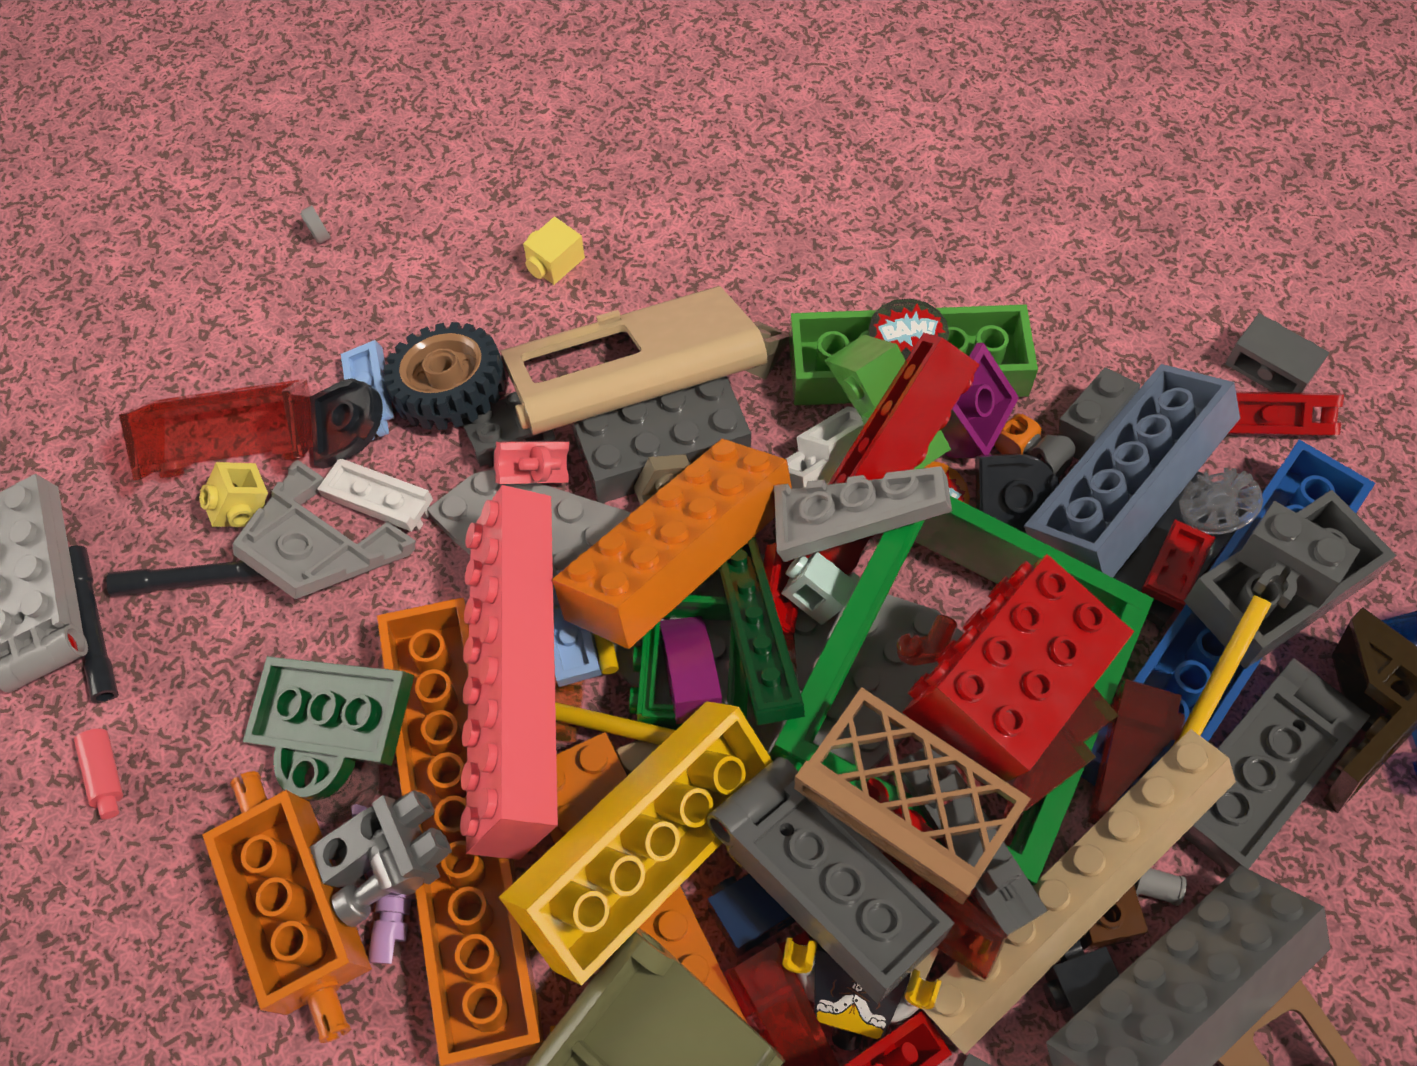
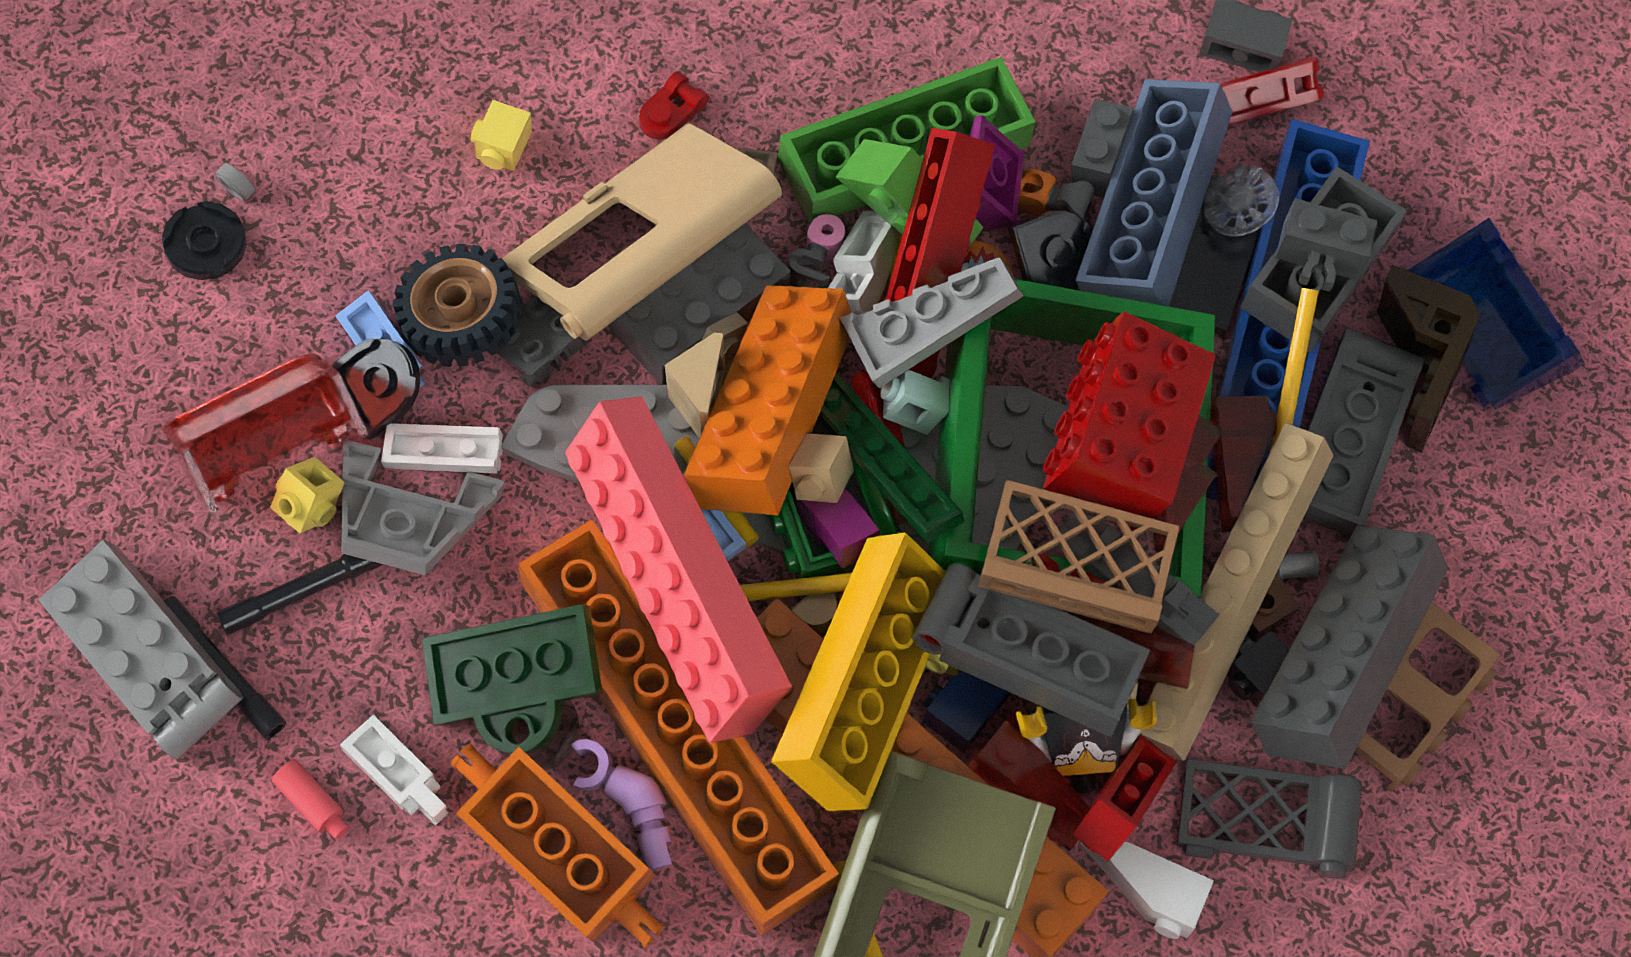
camera: 30 degrees left, 5 degrees up
(186, 772) = (395, 769): none -> white hinge
(278, 272) = (208, 253): none -> black tile
(388, 843) = (636, 758): dark grey hips -> none
(531, 462) = (586, 367): coral hips -> none
(618, 492) = (697, 379): none -> tan slope
(694, 619) = (821, 468): none -> tan brick
(701, 271) = (661, 117): none -> red plate
(798, 416) = (822, 243): none -> leg
(905, 321) = (902, 117): tile -> none
(925, 649) = (1043, 425): clear red arm -> none
(1178, 565) = (1222, 273): red plate -> none

